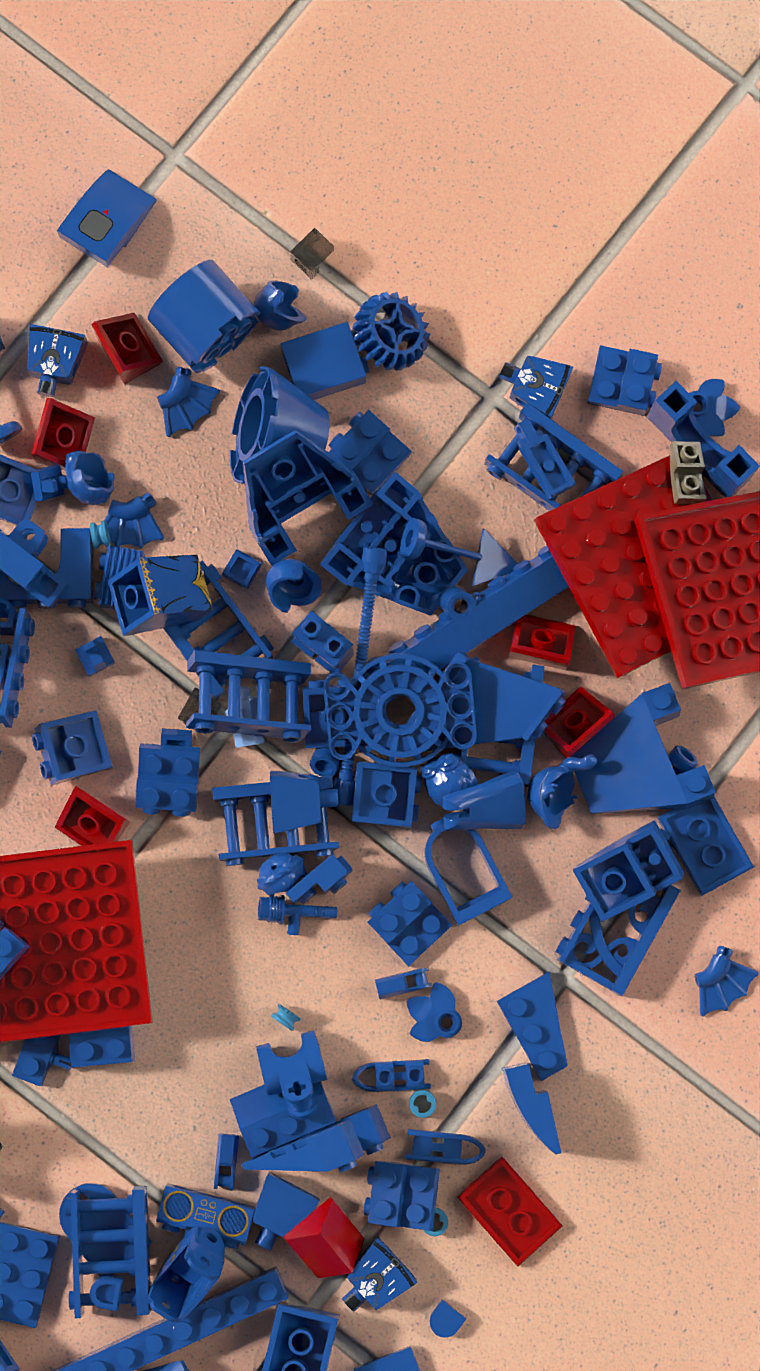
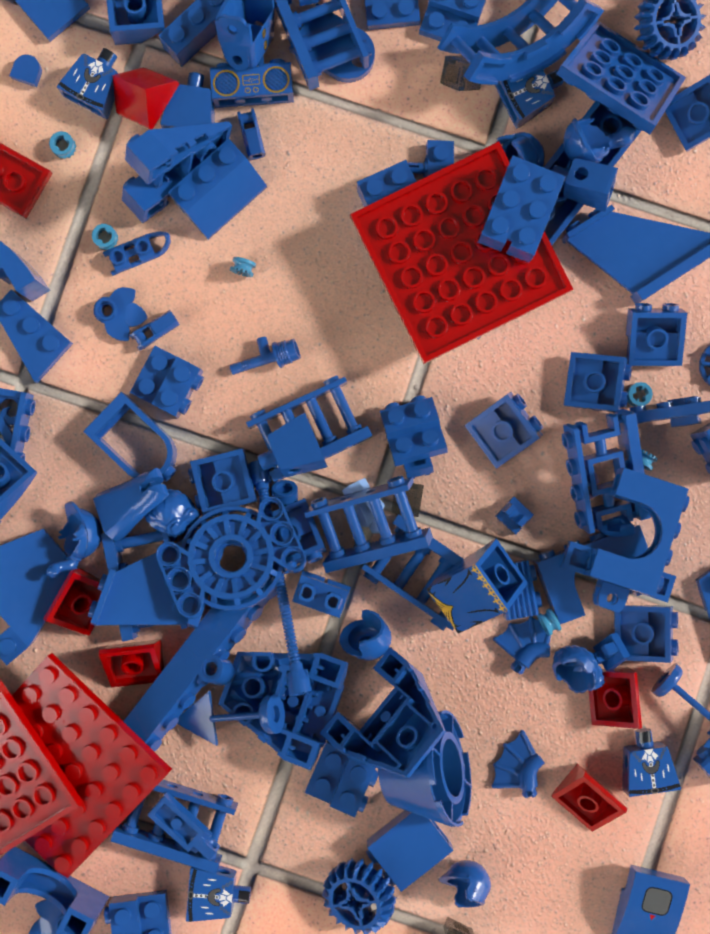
camera: 165 degrees right, 5 degrees up
(89, 820) = (465, 373): red slope -> none
(203, 315) = (531, 853): blue brick -> none
(241, 569) = (416, 635): blue tile -> none
(280, 873) = (287, 382): blue hair -> none
(294, 1075) = (216, 218): blue piece -> none
(328, 876) = (246, 395): blue plate -> none
(402, 1195) = (94, 154): blue plate -> none
(451, 1147) = (69, 209): blue piece -> none
(686, 471) = (55, 862): dark tan slope -> none

